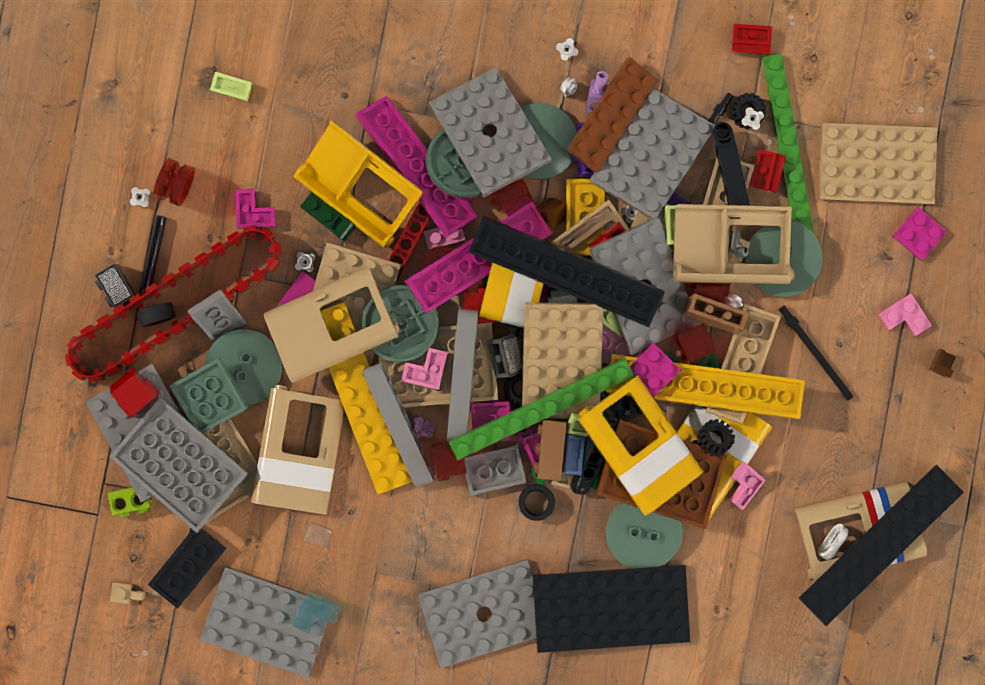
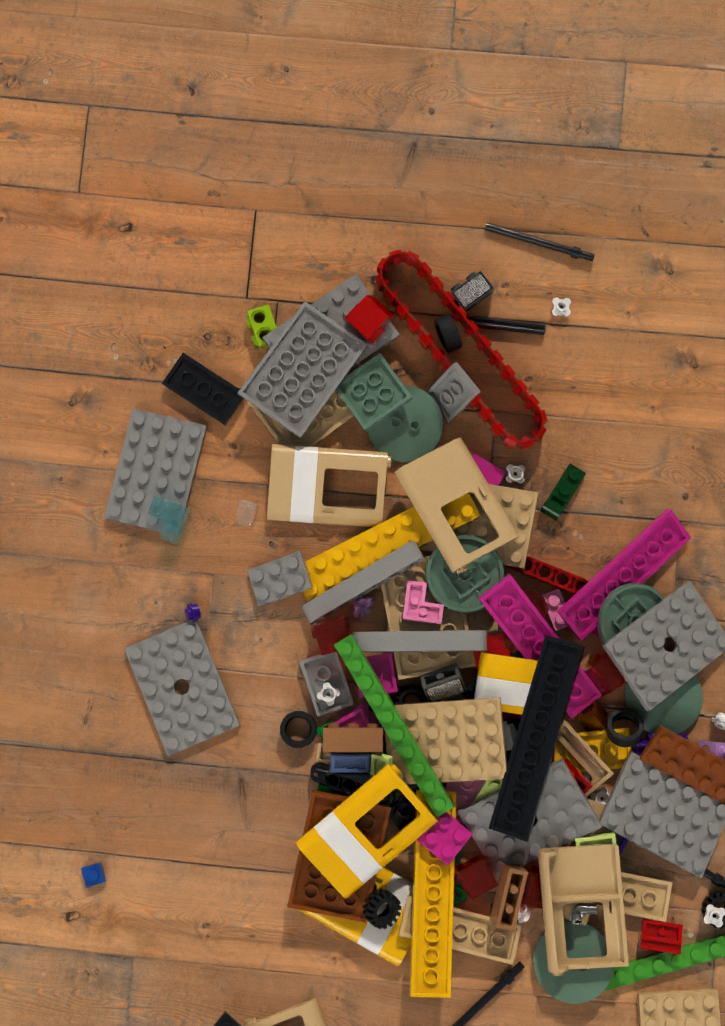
camera: 90 degrees right, 5 degrees down
(84, 178) = (575, 252): none -> black bar
(123, 593) = (172, 331): tan plate -> none
(174, 182) = (580, 337): clear red wheel -> none
(231, 86) = (681, 384): yellowish green plate -> none
(248, 214) = (556, 414): dark pink plate -> none
(335, 169) = (610, 494): yellow piece -> none
(386, 506) = (280, 578): none -> light grey plate
(411, 596) = (192, 612): none -> dark purple plate
(505, 464) = (333, 693): none -> white plate
(552, 180) = (628, 714): none -> black tyre
(611, 608) = (198, 816): black plate -> none
(642, 539) = (270, 841): sand green plate -> none
(730, 165) = (663, 896): black piece -> none
(749, 483) = (337, 948): bright pink plate -> none

